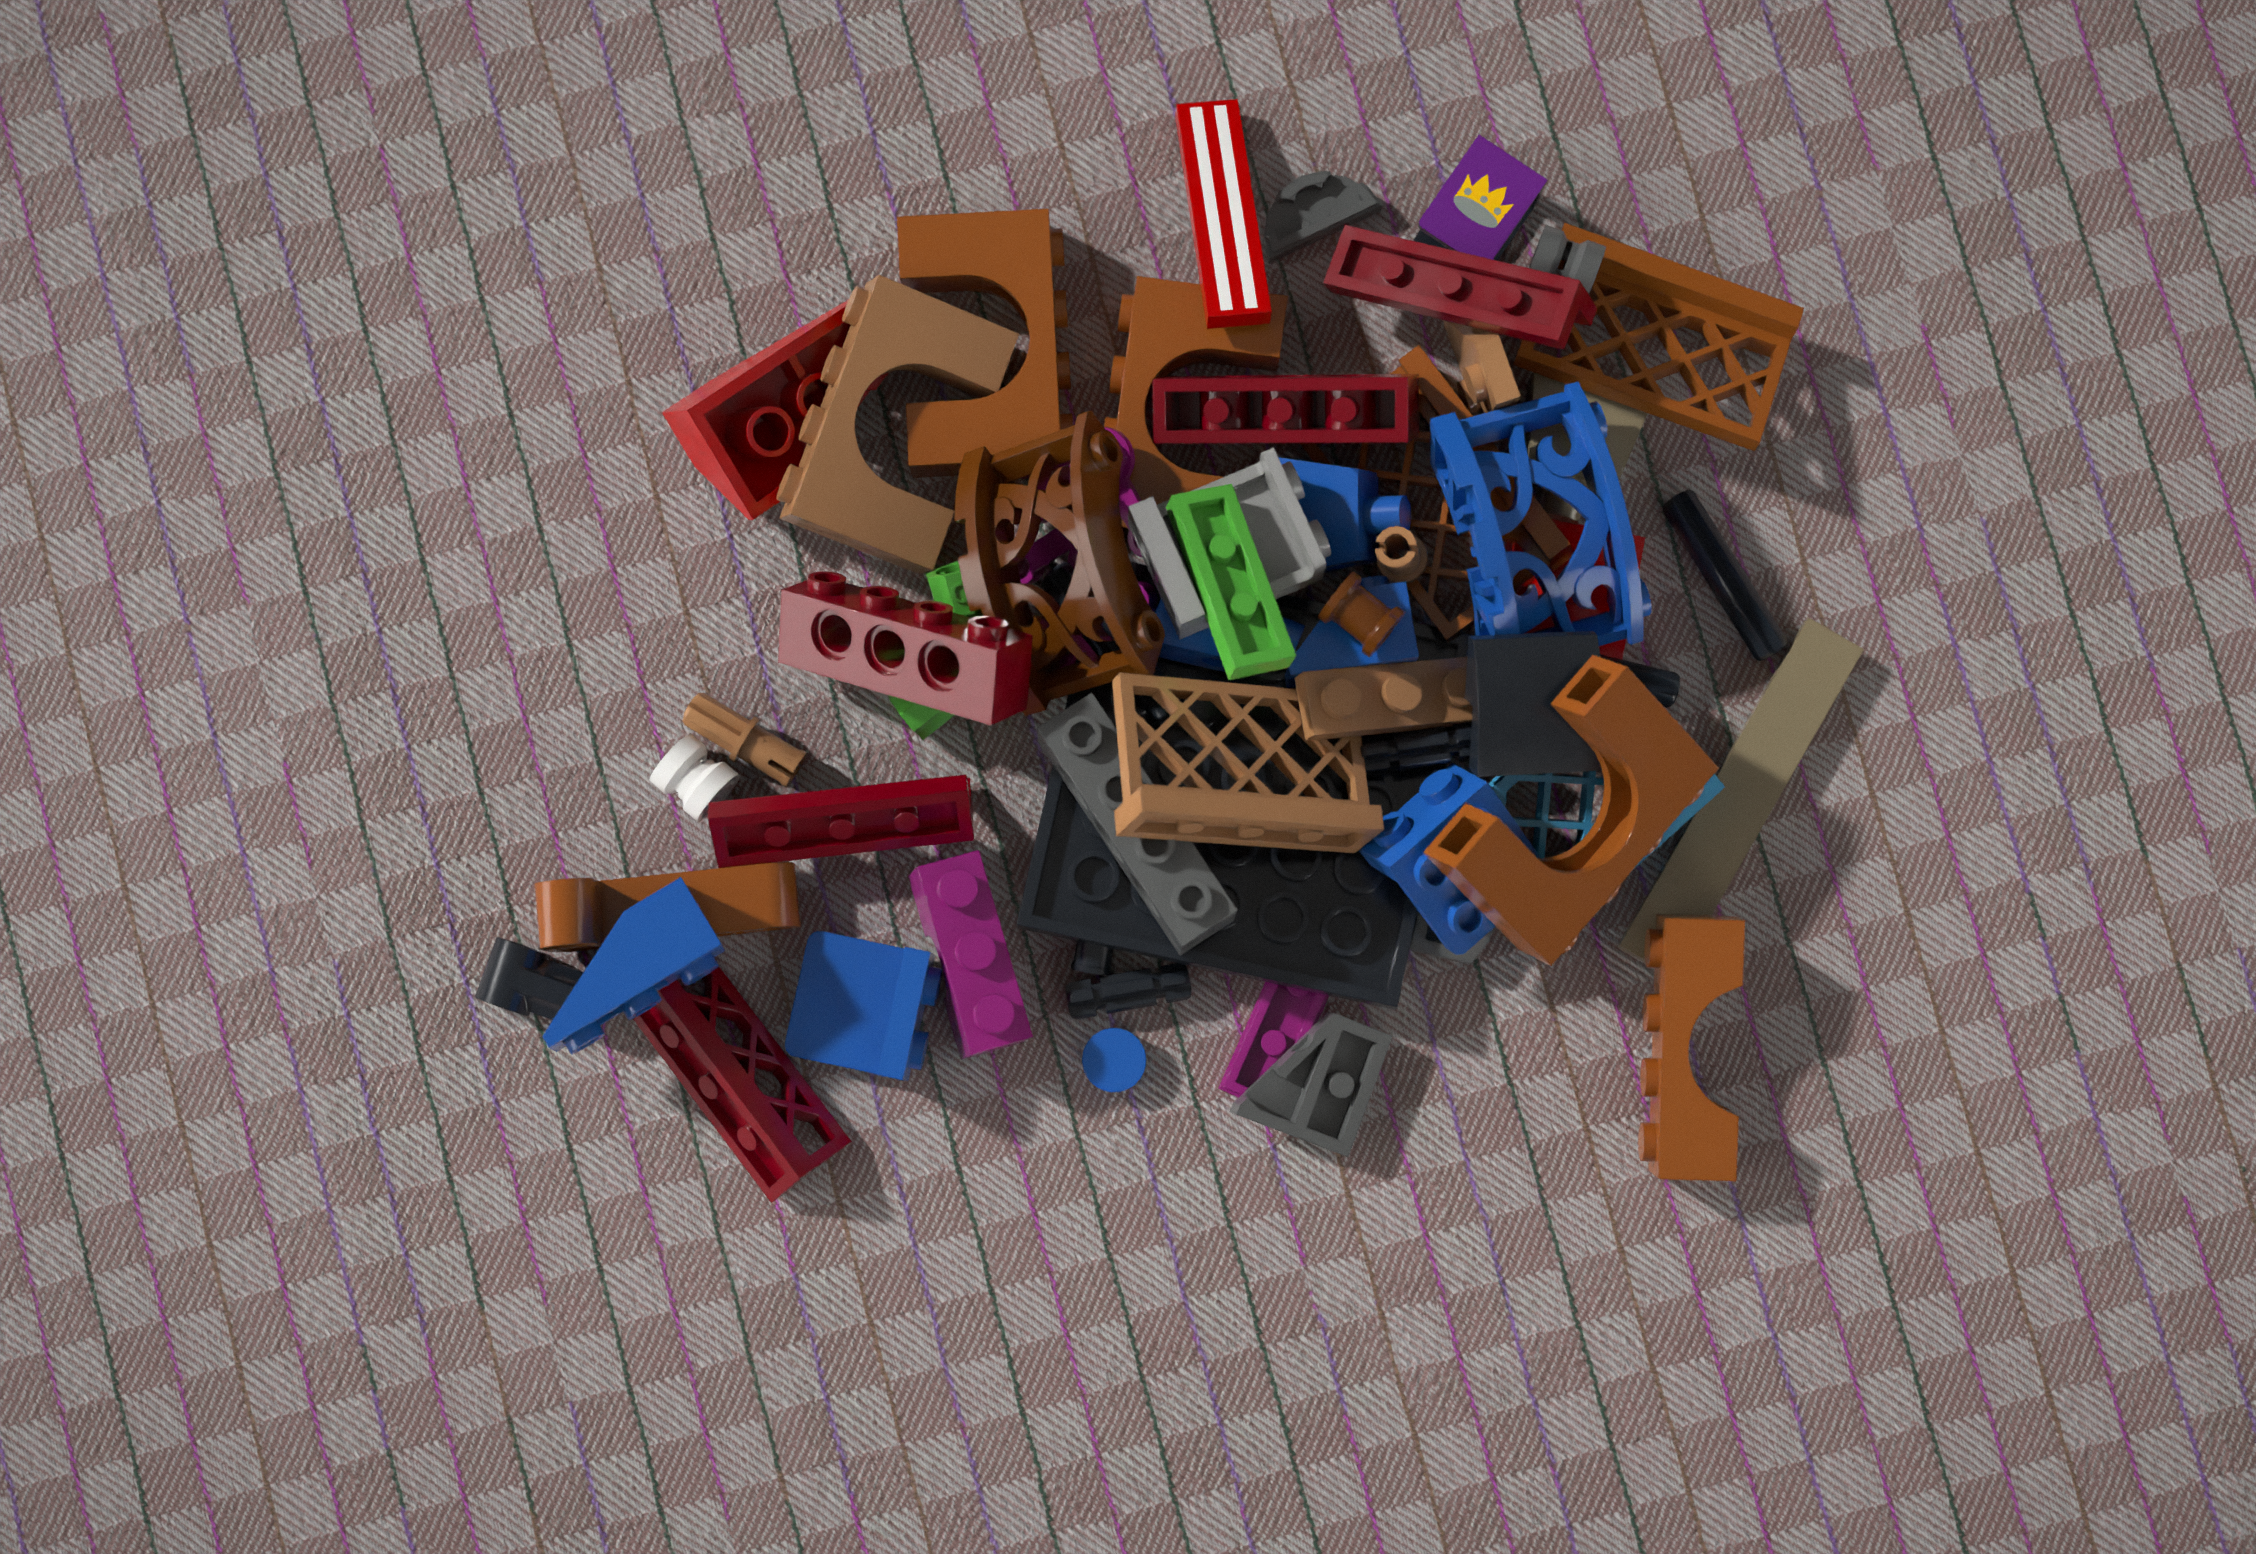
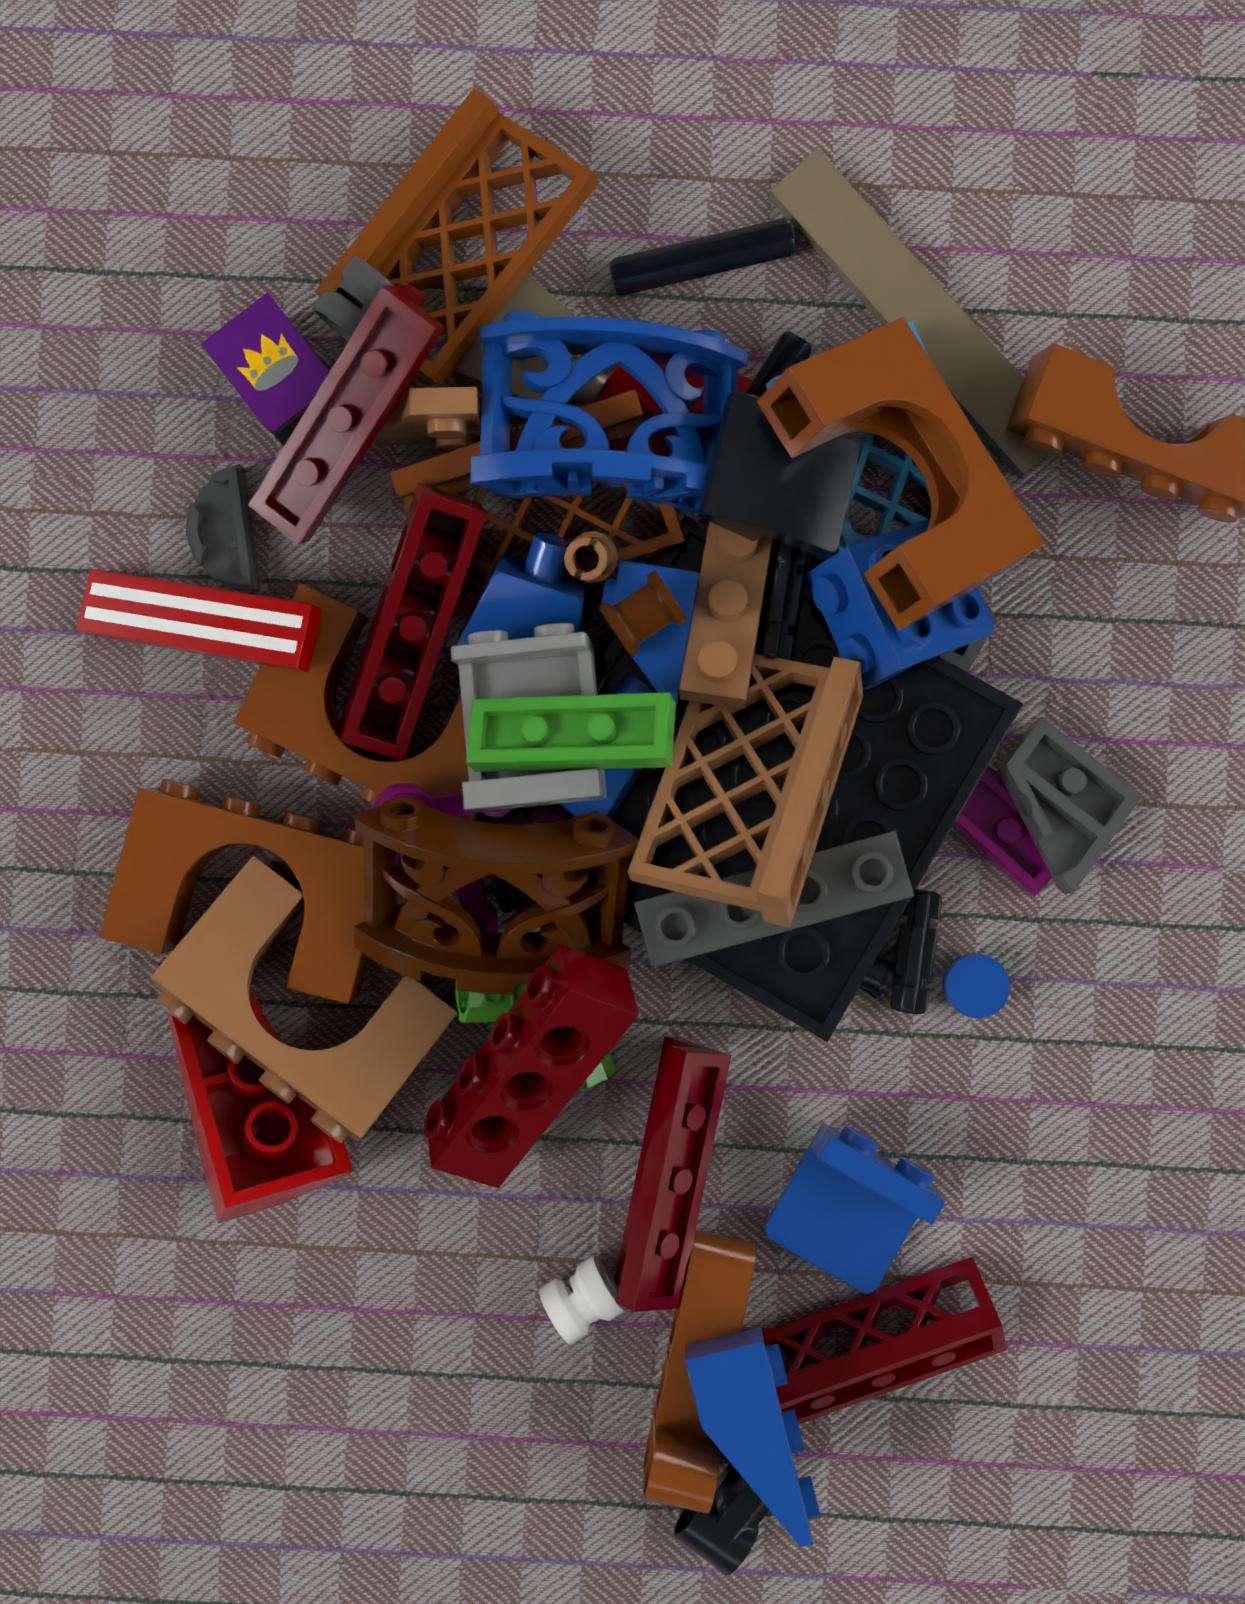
camera: 80 degrees left, 5 degrees up
(744, 738) = (559, 1239): medium nougat axle -> none
(973, 954) = (840, 1092): magenta arch -> none

